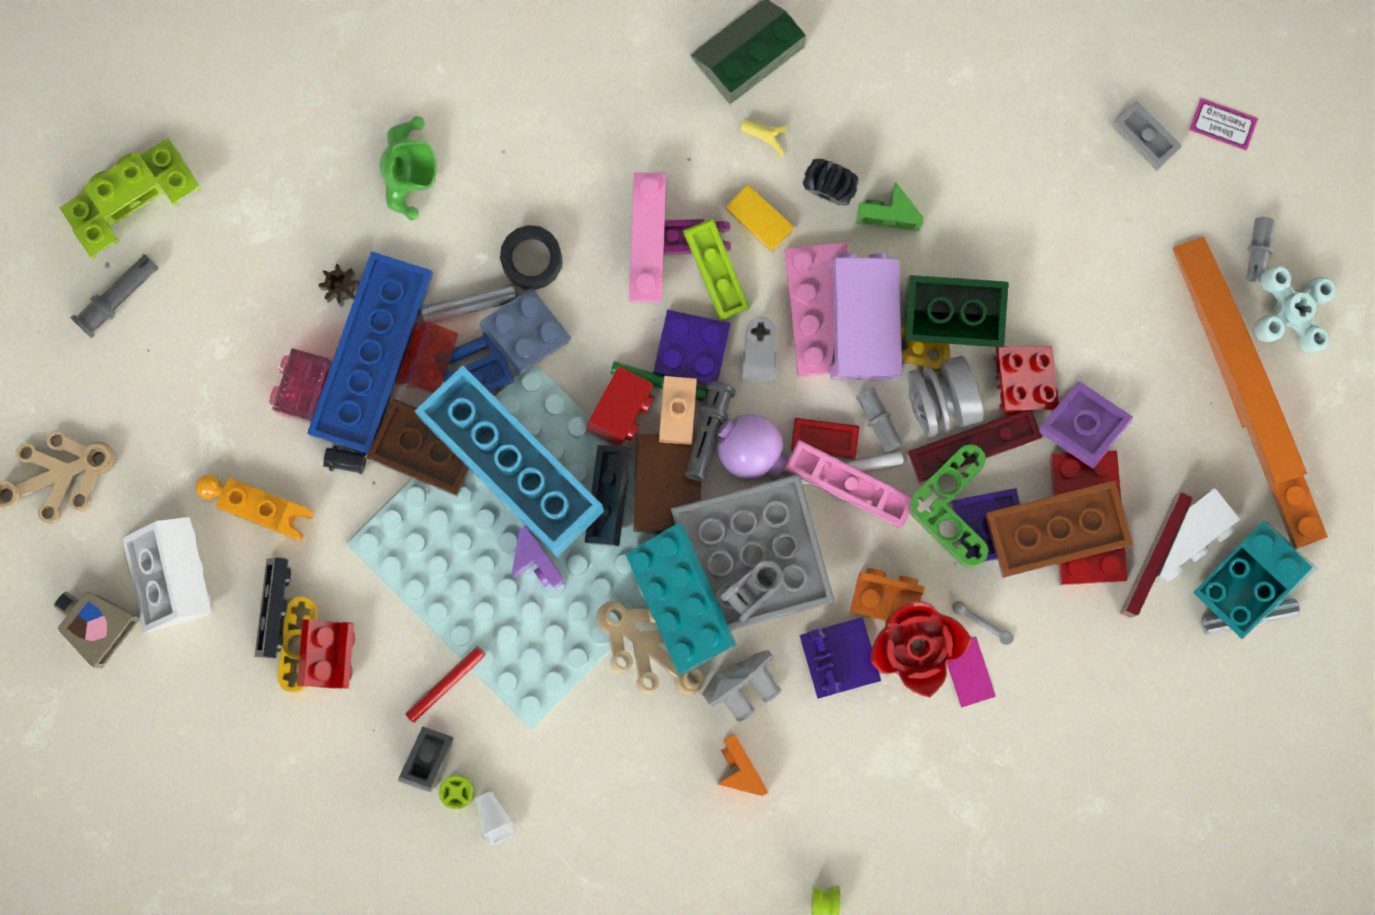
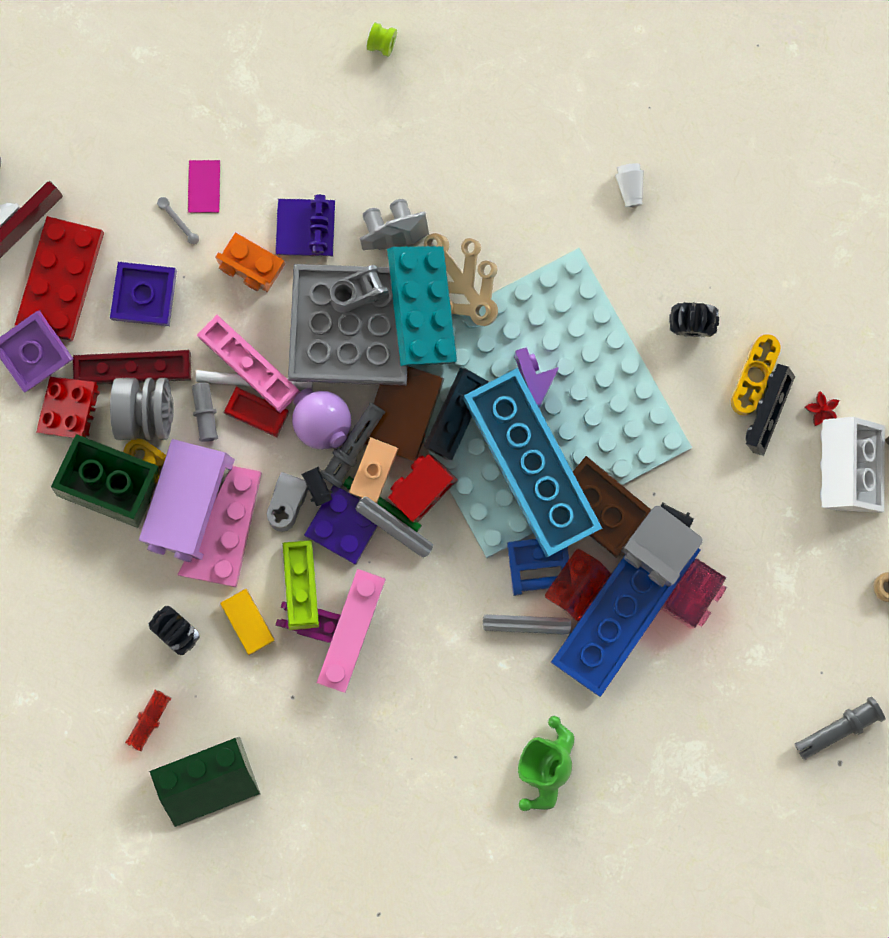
camera: 165 degrees left, 0 degrees up
(125, 189) = (808, 825): lime bracket -> none
(215, 629) = (822, 408): none -> red plant
(253, 505) = (762, 502): light orange plate -> none
(325, 654) = (734, 356): red bracket -> none
(342, 277) = (644, 677): dark brown gear -> none
(348, 419) = (661, 546): none -> light grey bracket
(380, 679) = (694, 319): none -> black gear
(426, 759) = (673, 243): dark grey slope -> none
(445, 684) = (639, 303): red bar -> none
(461, 786) = (657, 208): lime wheel -> none
(525, 331) = (484, 582): sand blue plate -> none
(536, 233) = (460, 625): black tyre -> none
(637, 358) = (394, 526): none -> light grey axle
(731, 372) = (317, 486): none -> black pin
(746, 778) = (416, 154): orange slope -> none
(765, 133) = (215, 697): light yellow bar -> none
(827, 90) = (148, 720): none -> clear red pin
(900, 213) = (123, 587): bright green slope -> none
(922, 667) = (237, 211): red brick -> none
(942, 512) = (180, 316): bright green beam -> none
(1058, 529) = (86, 269): dark orange plate -> none

